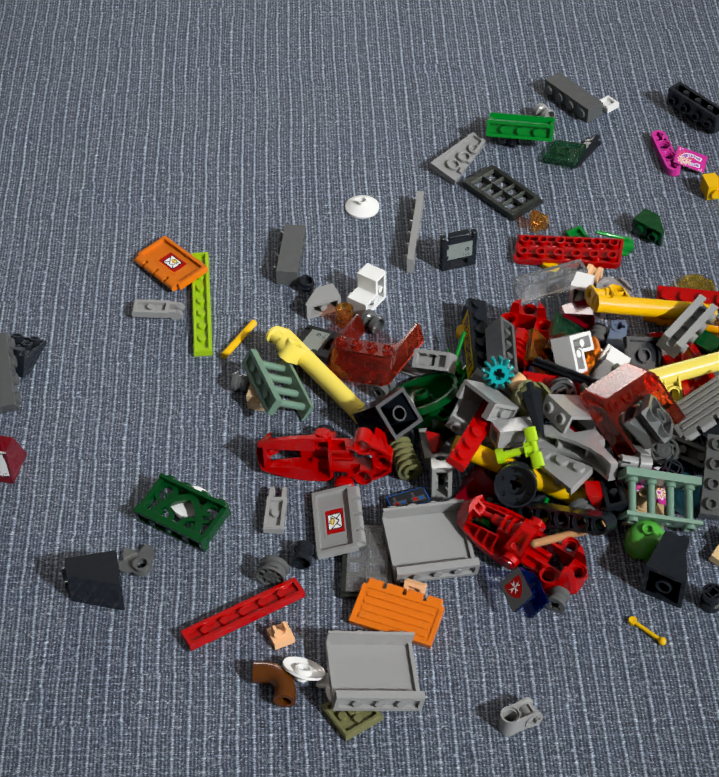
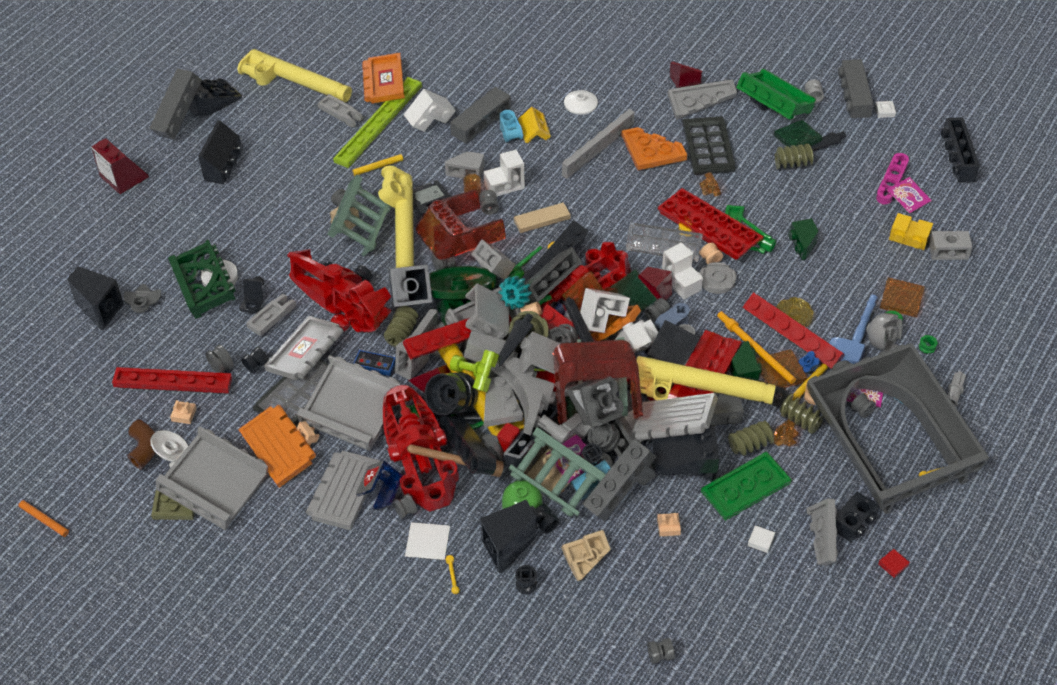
camera: 35 degrees right, 5 degrees up
(48, 304) = (266, 67): none -> light yellow piece
(87, 398) = (220, 153): none -> black slope
(242, 501) = (252, 294): none -> black bracket
(243, 271) = (427, 108): none -> white brick
(305, 283) = (469, 144): black plate -> none
(326, 252) = (510, 126): none -> medium azure piece
(343, 243) = (533, 124): none -> yellow panel
(428, 311) = (541, 217): none -> tan tile
(430, 146) = (684, 75): none -> dark red slope
(435, 441) = (432, 322): red slope -> none
(458, 250) = (609, 175): black container -> none
(461, 215) = (651, 150): none -> orange plate
(489, 617) = (335, 495): none -> light grey hinge
(519, 716) = (285, 579): light grey piece -> none
(580, 169) = (792, 155): none -> olive piece
(599, 617) = (427, 541): none -> white sticker
(617, 301) = (688, 285): yellow piece -> none
(687, 326) = (731, 339): light grey brick -> none

